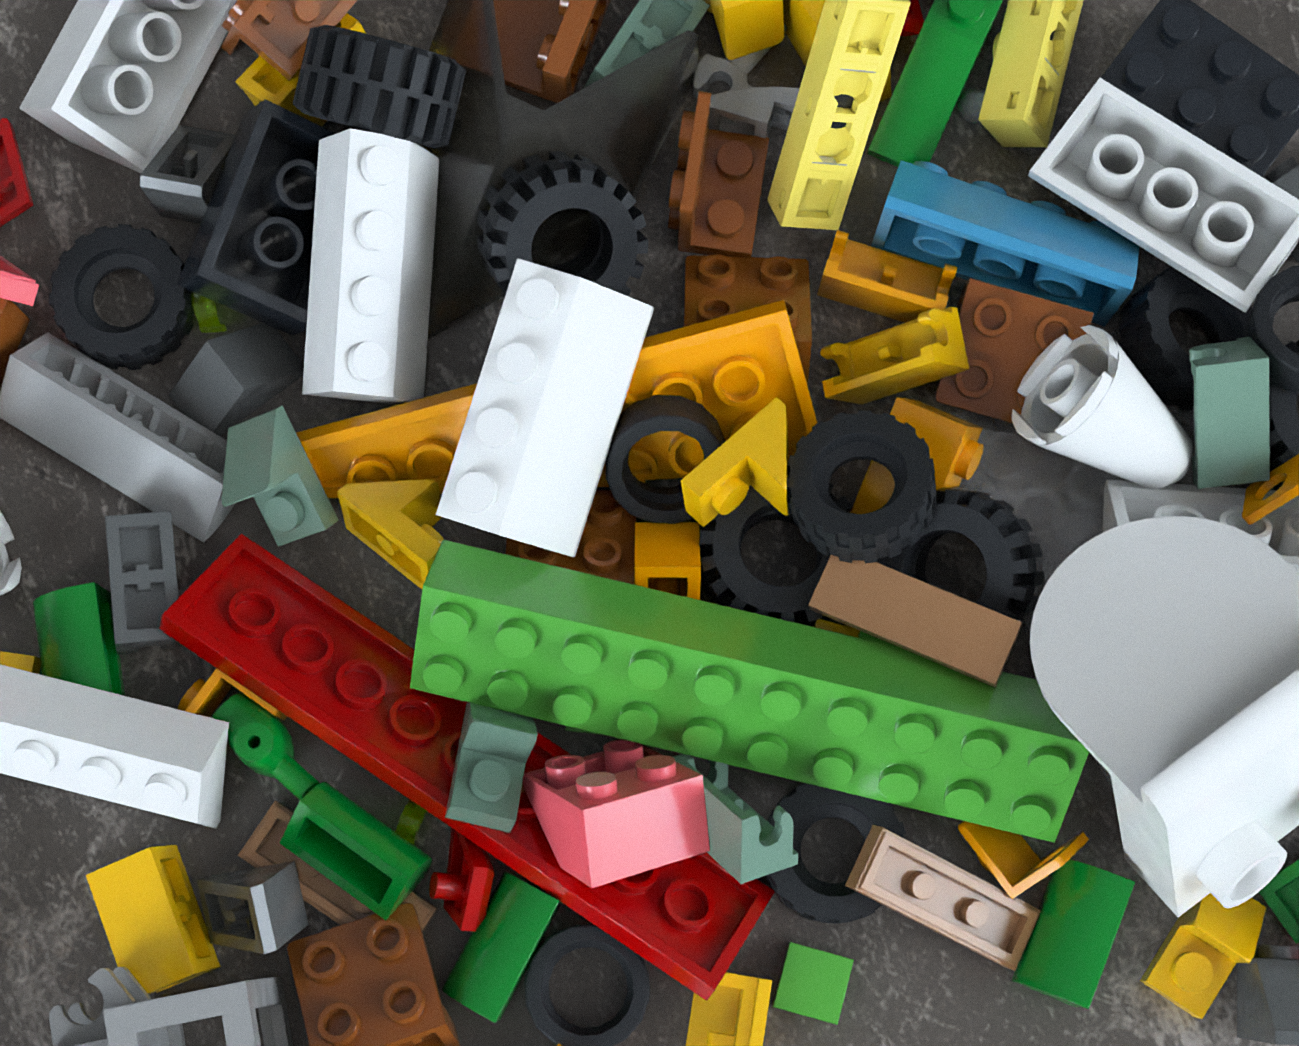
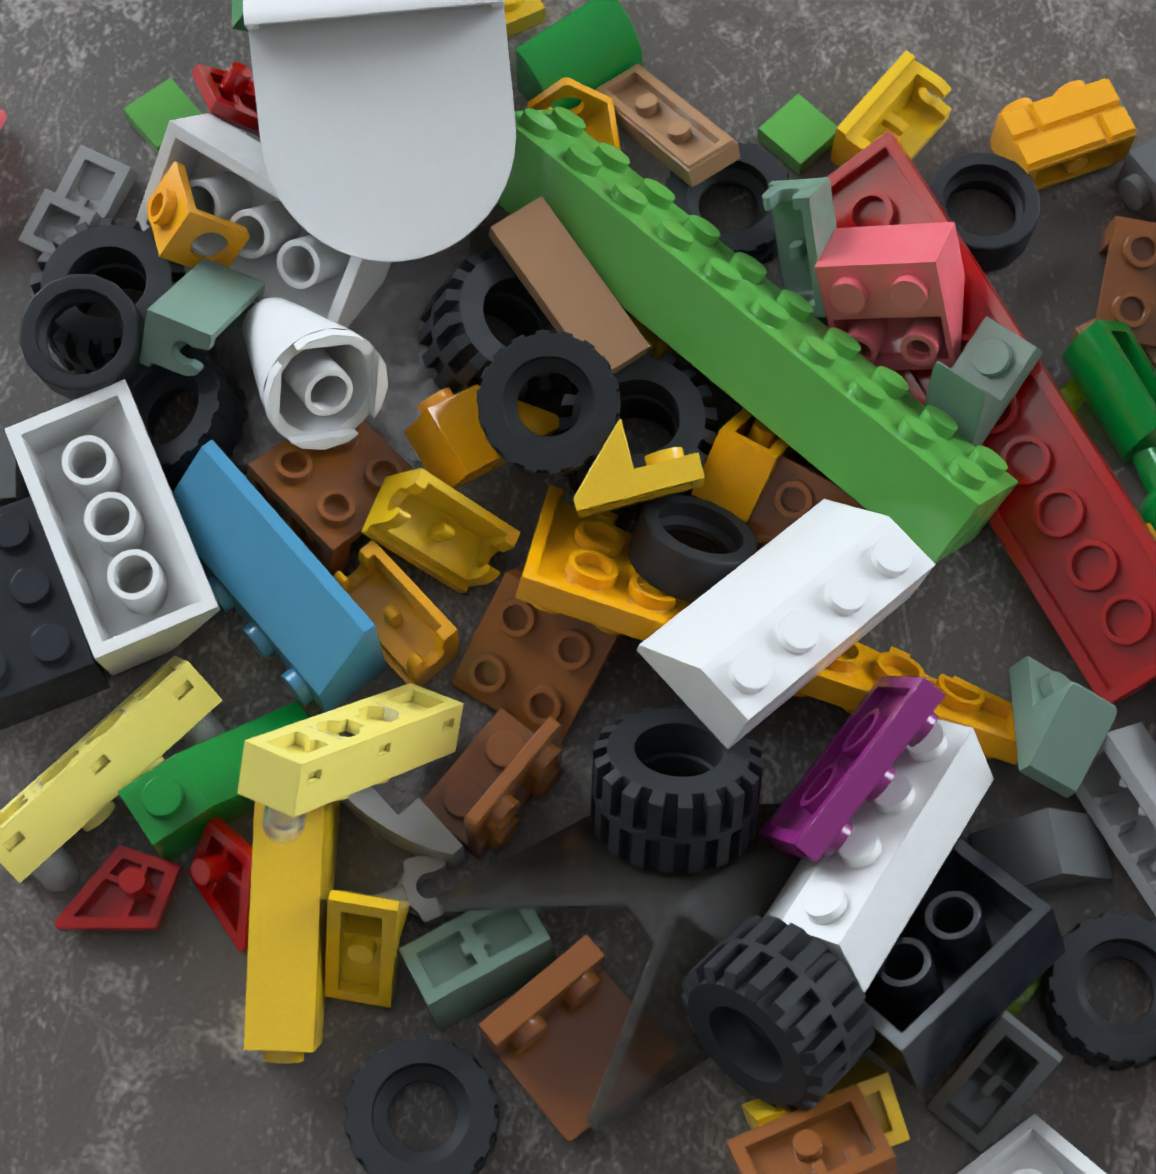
camera: 150 degrees left, 10 degrees down
(396, 522) = (965, 641): yellow slope -> none
(418, 302) = (853, 767): none -> magenta plate
(466, 883) = (1046, 320): red piece -> none
(501, 947) = (1044, 262): green brick -> none

